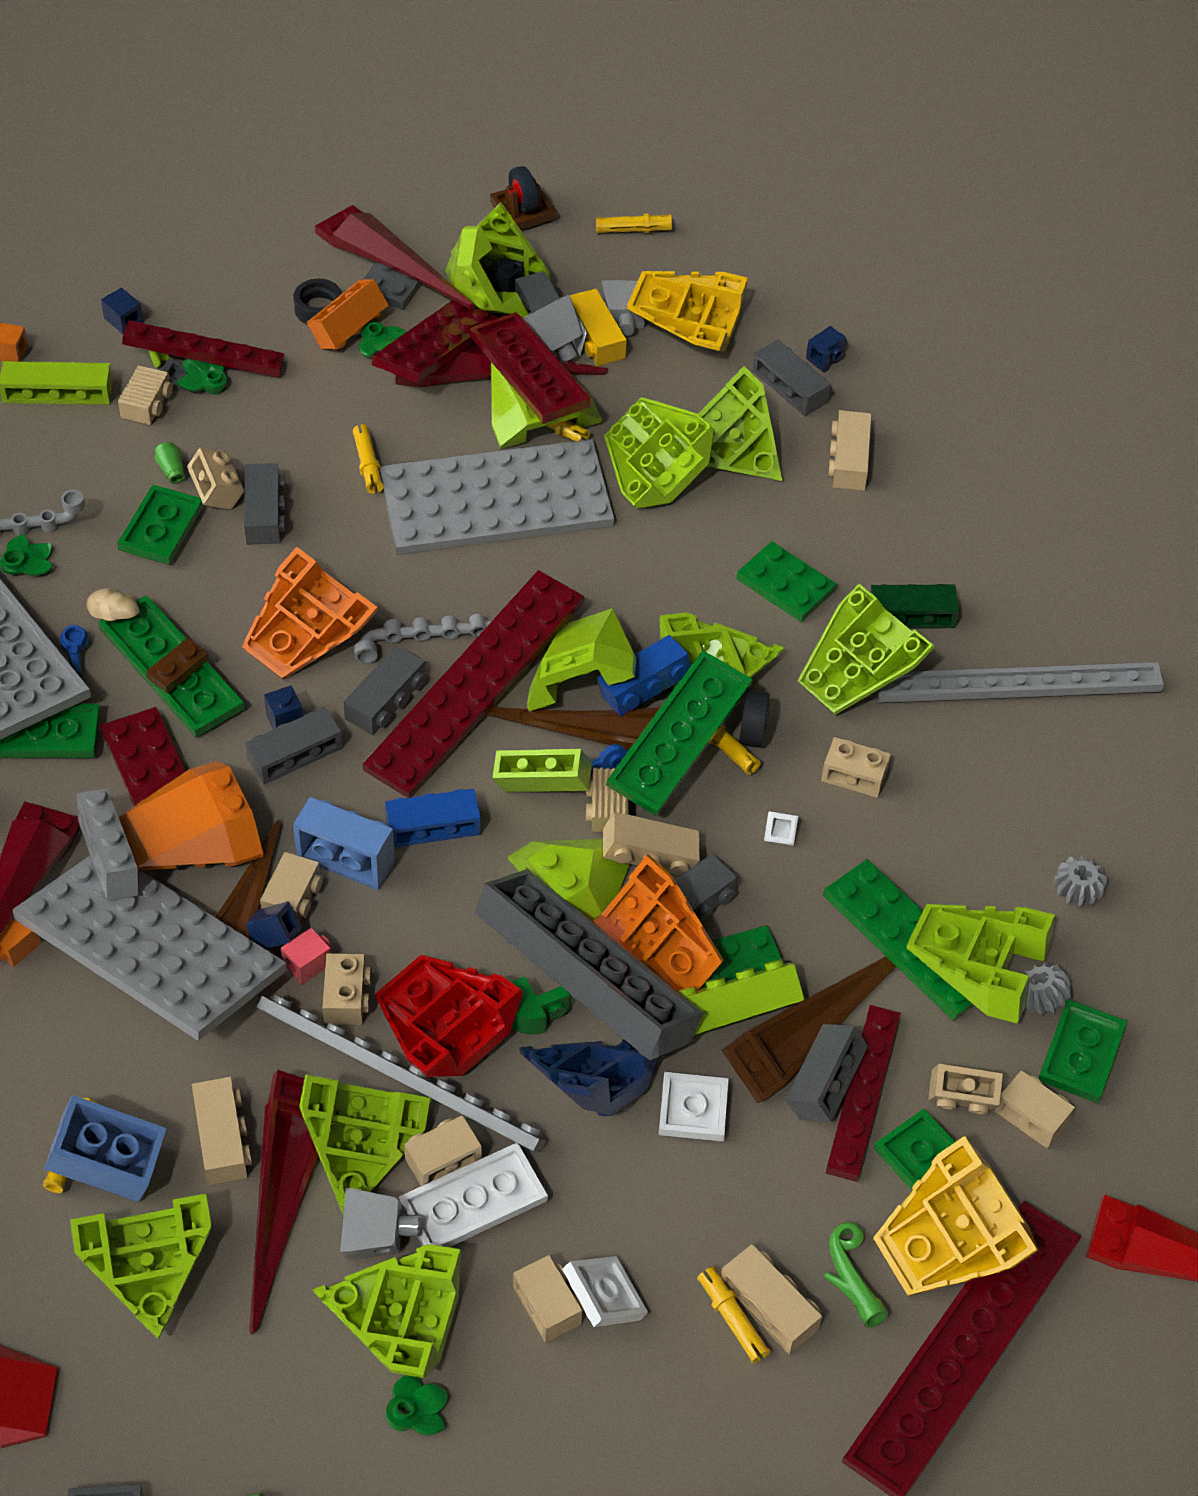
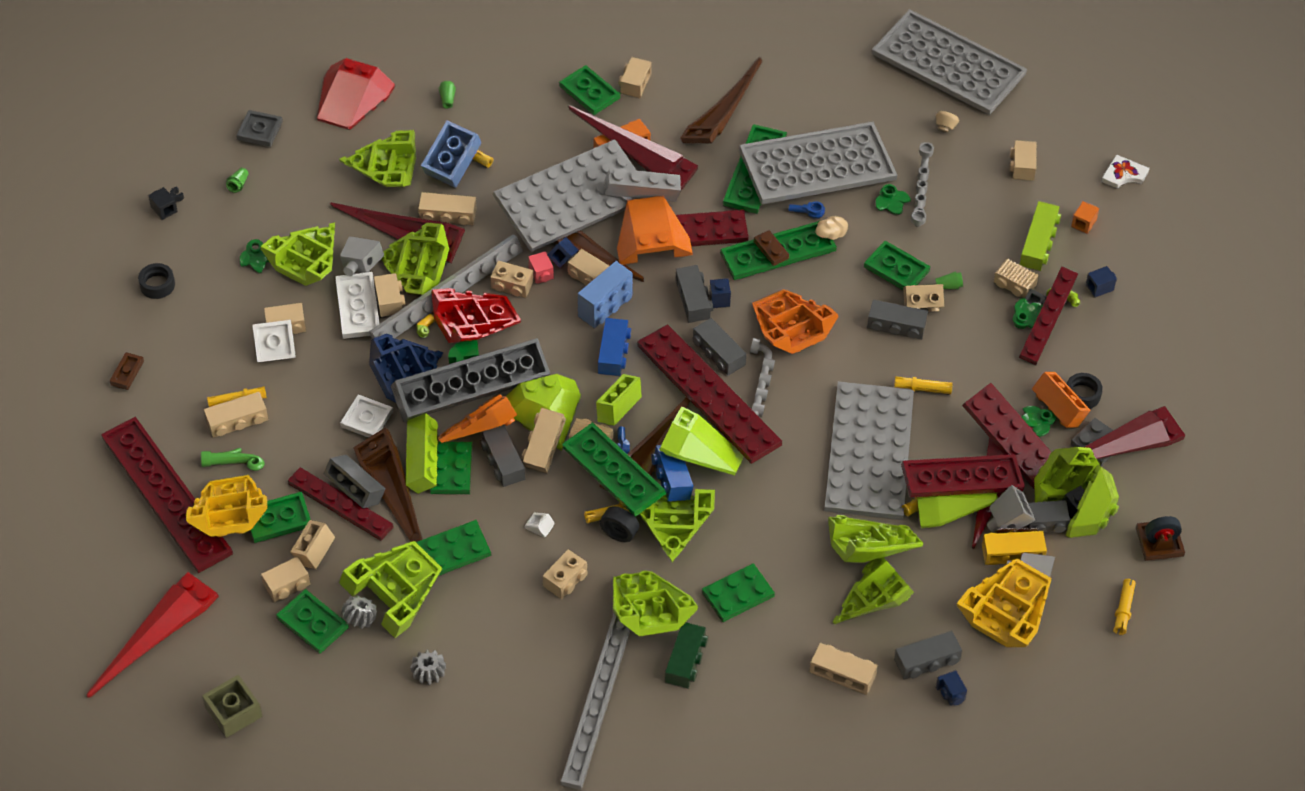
camera: 110 degrees right, 0 degrees up
(483, 1090) = (422, 326): none -> arm

